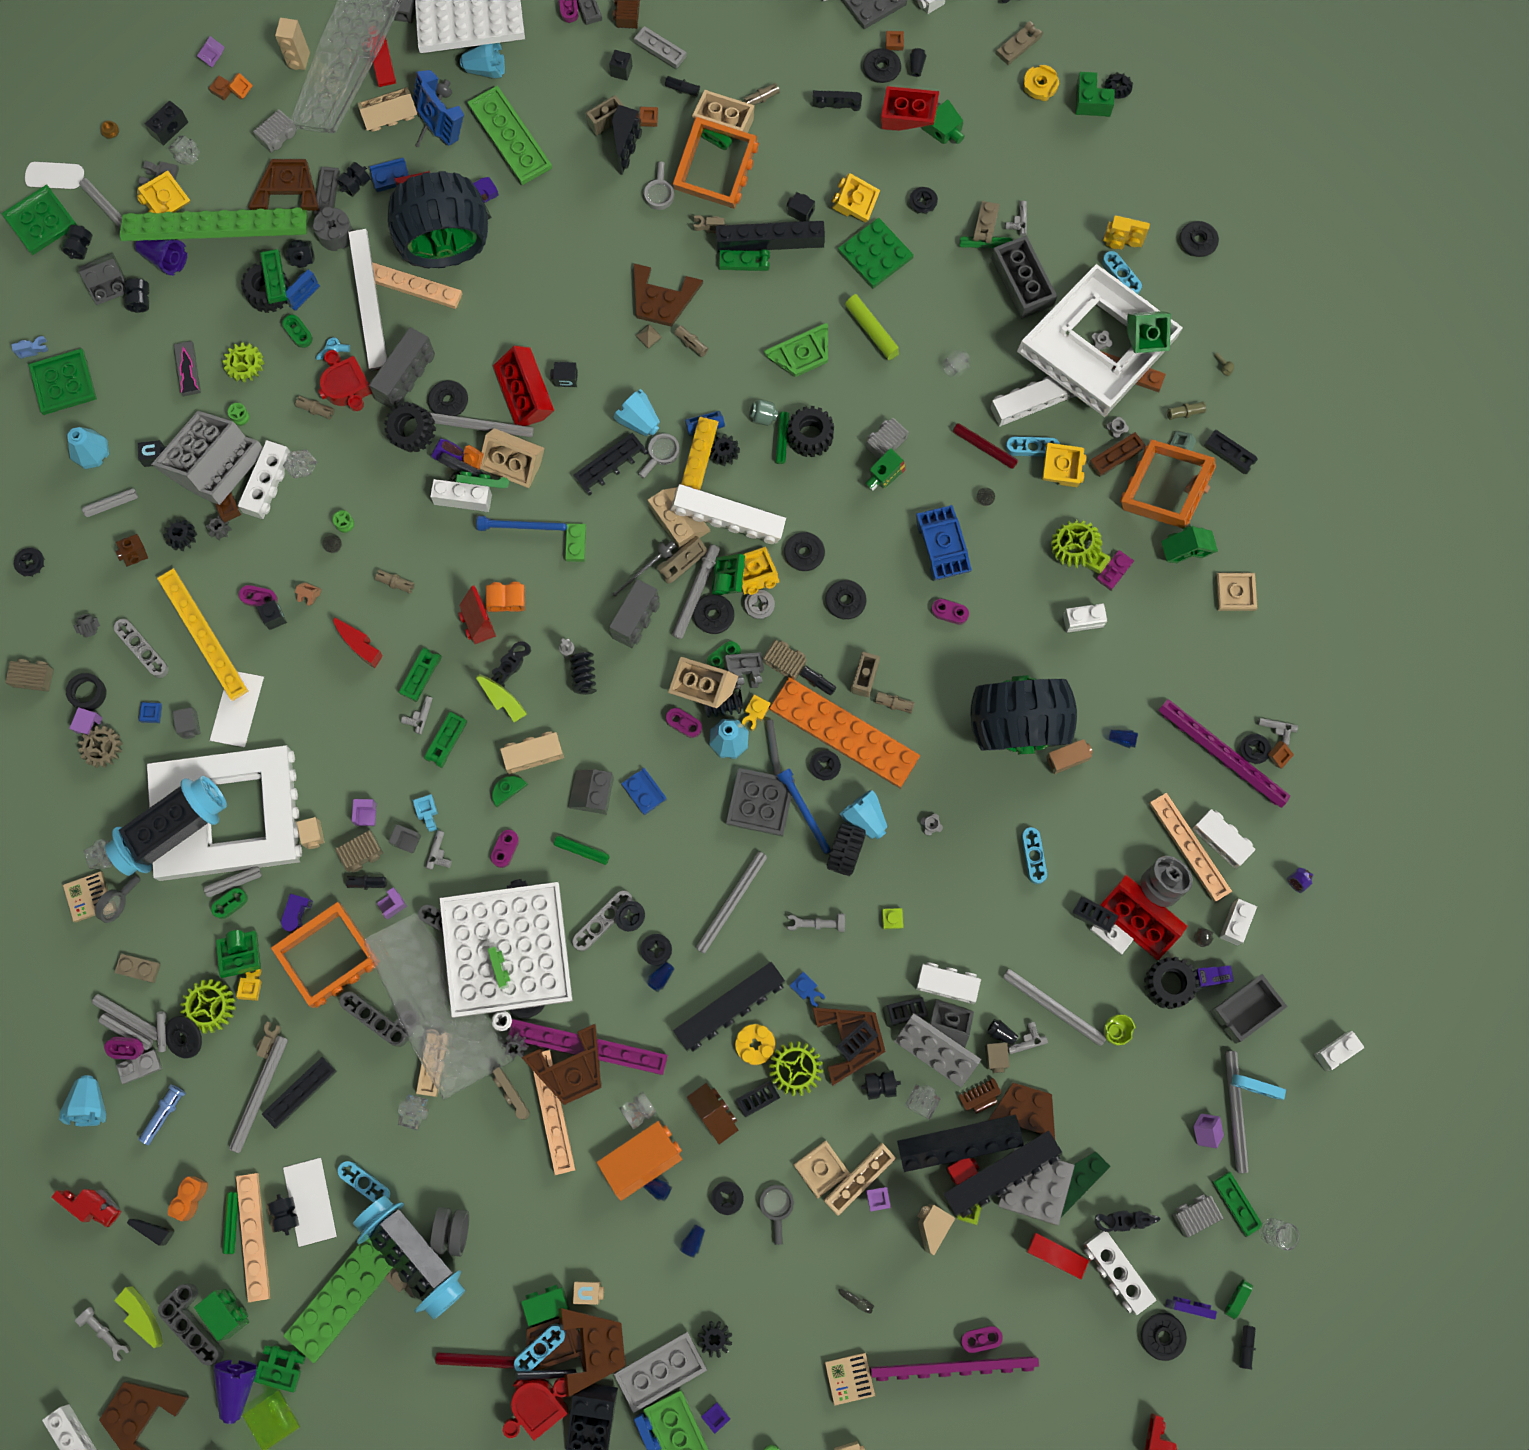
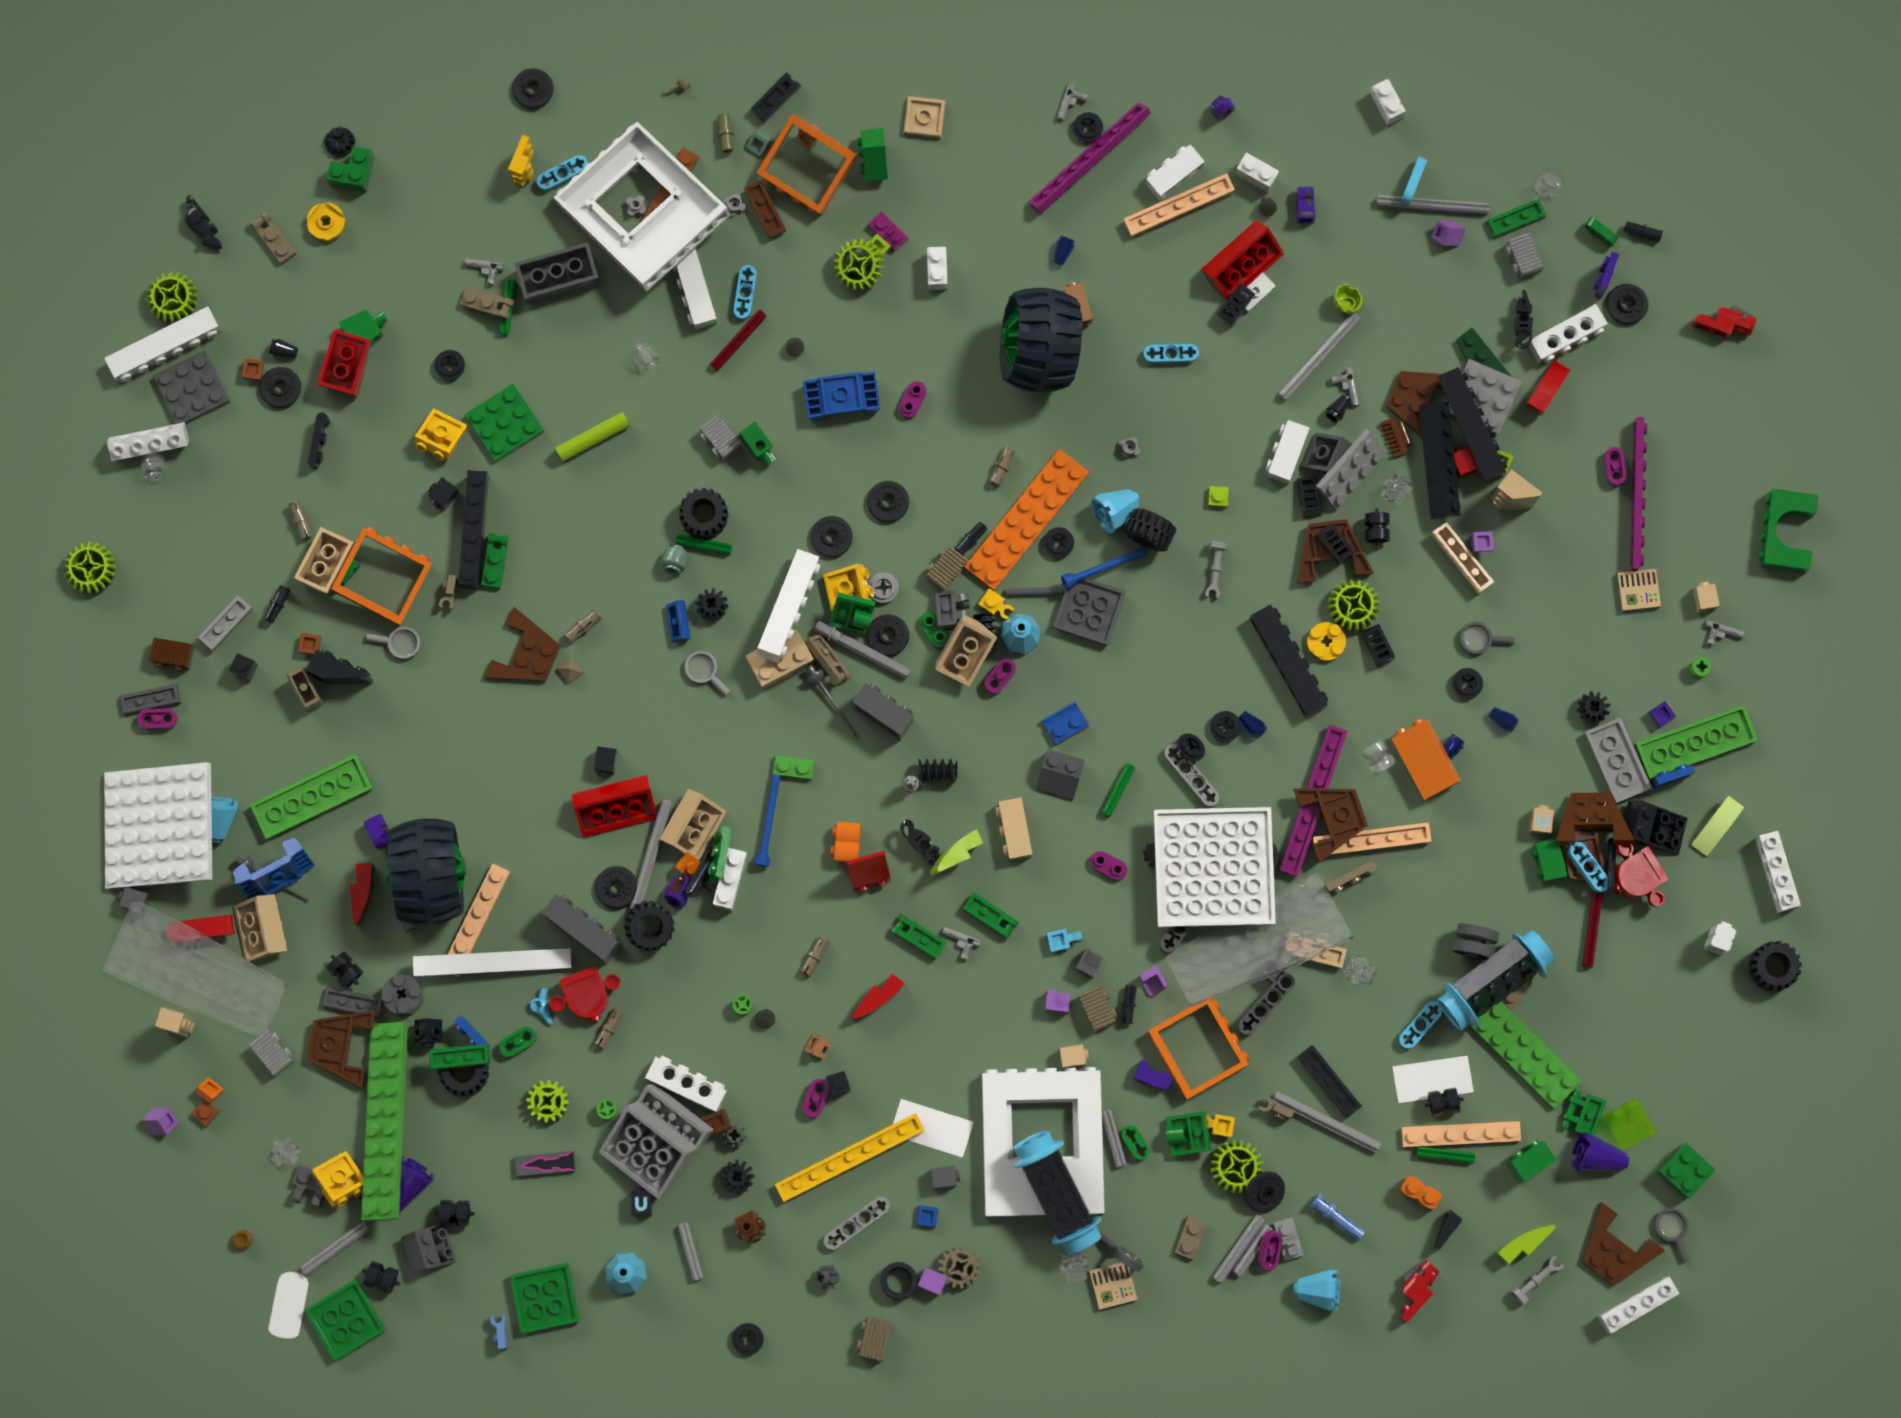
camera: 85 degrees left, 5 degrees up
(161, 1034) = (1246, 1211): light grey hose -> none
(166, 123) = (245, 1173): black brick -> none
(194, 1327) = (1540, 1192): dark grey beam -> none
(300, 463) = (674, 1044): clear brick -> none
(385, 173) = (340, 931): blue plate -> none
(437, 853) = (1106, 933): light grey hose -> none
(498, 1017) = (1286, 874): white cone -> none
(502, 975) = (1226, 872): bright green plate -> none
(507, 788) = (1047, 858): green plate -> none
(510, 1050) = (1307, 867): dark grey gear -> none
(609, 462) = (710, 724): black hinge -> none
(638, 414) = (662, 688): medium azure cone -> none
(699, 453) = (717, 629): yellow plate -> none
(713, 1112) = (1388, 686): reddish brown brick -> none
(731, 902) = (1186, 649): light grey axle -> none
(801, 352) = (610, 512): bright green wing -> none
(804, 987) = (1277, 588): blue plate -> none
(821, 1169) = (1448, 593): tan tile -> none
(861, 1304) = (1573, 572): clear smoke piece -> none
(865, 674) = (972, 490): dark tan brick -> none
(997, 1057) = (1361, 416): dark tan brick -> none
(1064, 464) = (772, 264): yellow plate -> none
(1149, 331) = (643, 155): green slope -> none
(1166, 881) = (1212, 232): dark grey wheel -> none
(1186, 977) = (1312, 229): black tyre -> none
(1248, 1008) = (1340, 177): dark grey piece -> none
(1280, 754) = (1097, 104): dark orange plate -> none

